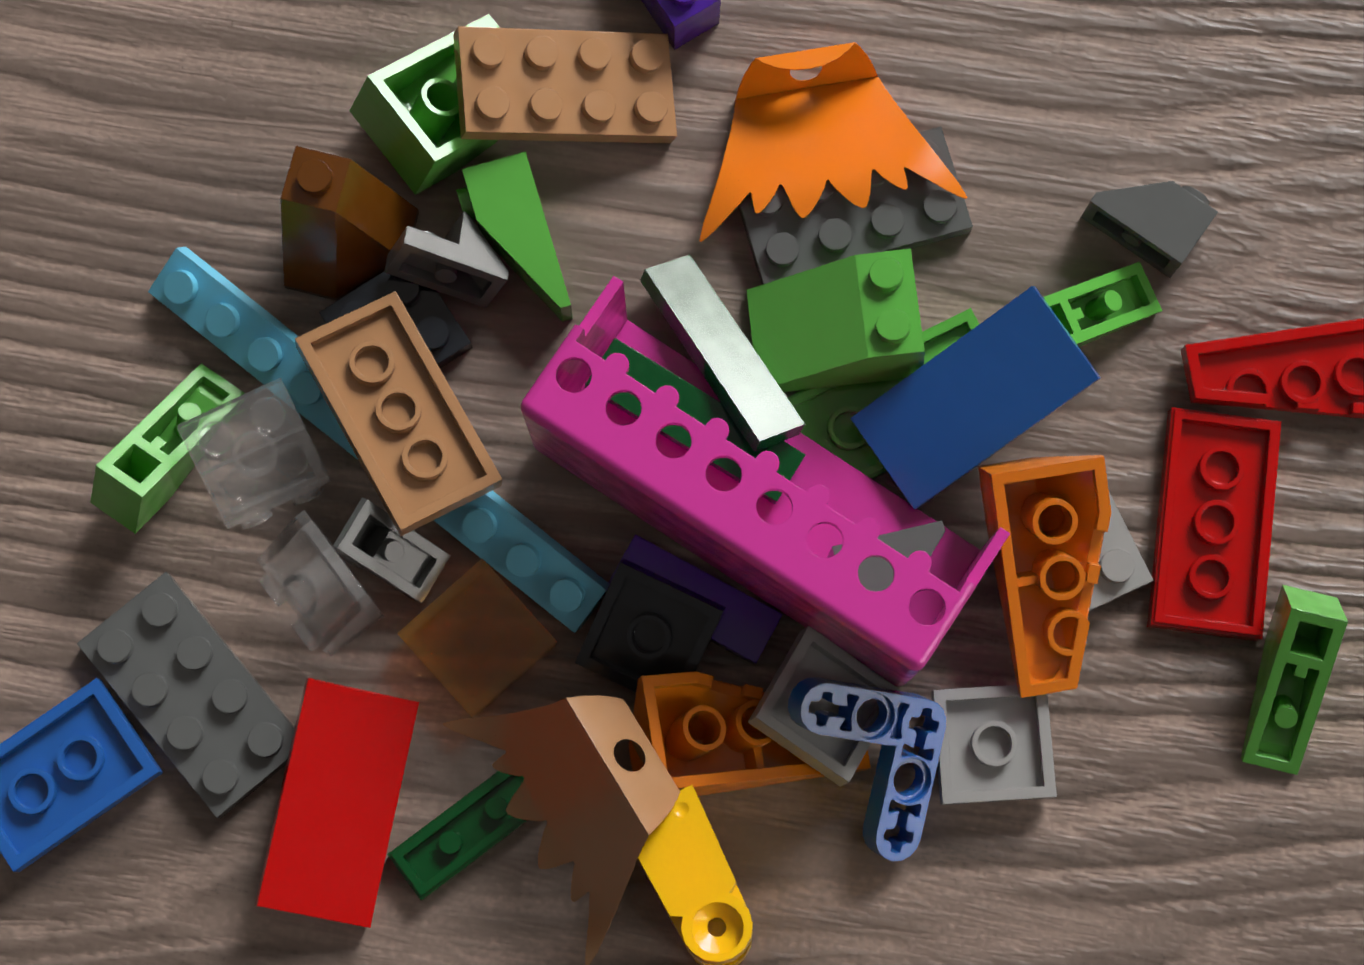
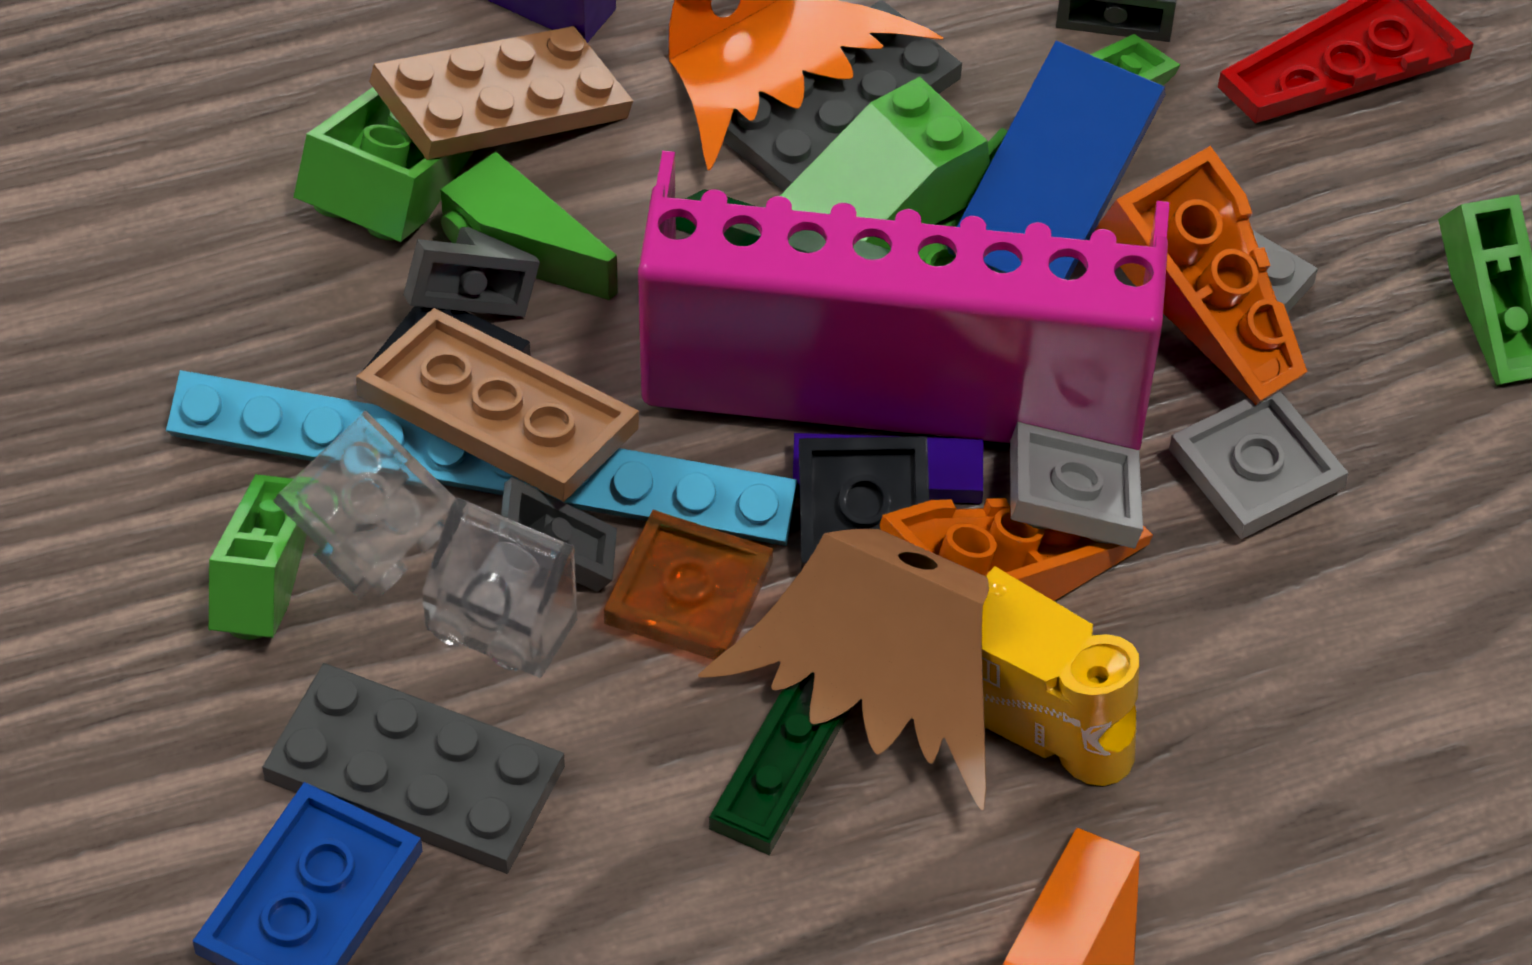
camera: 25 degrees left, 25 degrees down
(337, 224) = (340, 280): reddish brown slope -> none
(337, 803) = (630, 791): red tile -> none
(892, 732) = (1176, 472): blue beam -> none
(1214, 524) = (1343, 209): red tile -> none

